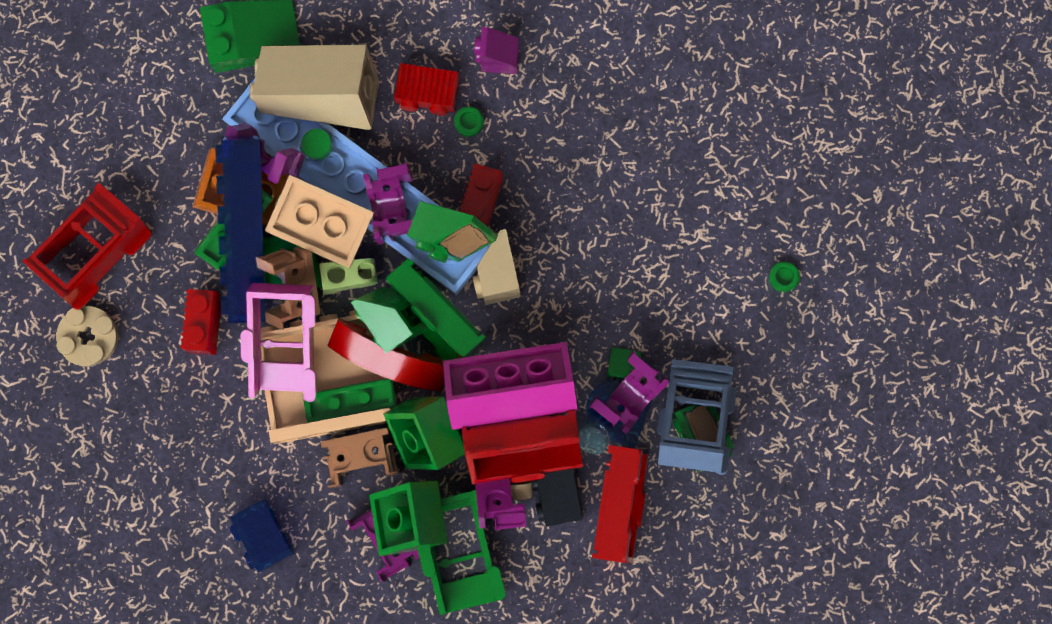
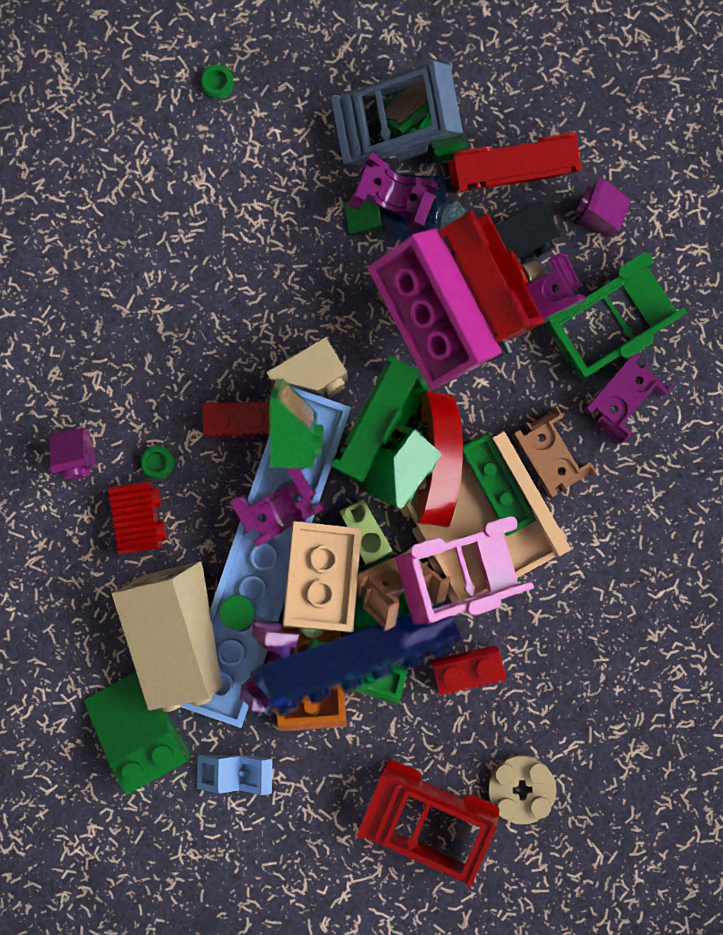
camera: 115 degrees left, 5 degrees up
(188, 102) = (234, 773): none -> light blue slope
(261, 536) = (669, 527): clear blue brick -> none
(408, 518) = (603, 374): green slope -> none
(424, 433) = (509, 388): green brick -> none
(557, 574) = (602, 208): none -> magenta slope
(653, 460) = (444, 149): none -> green slope

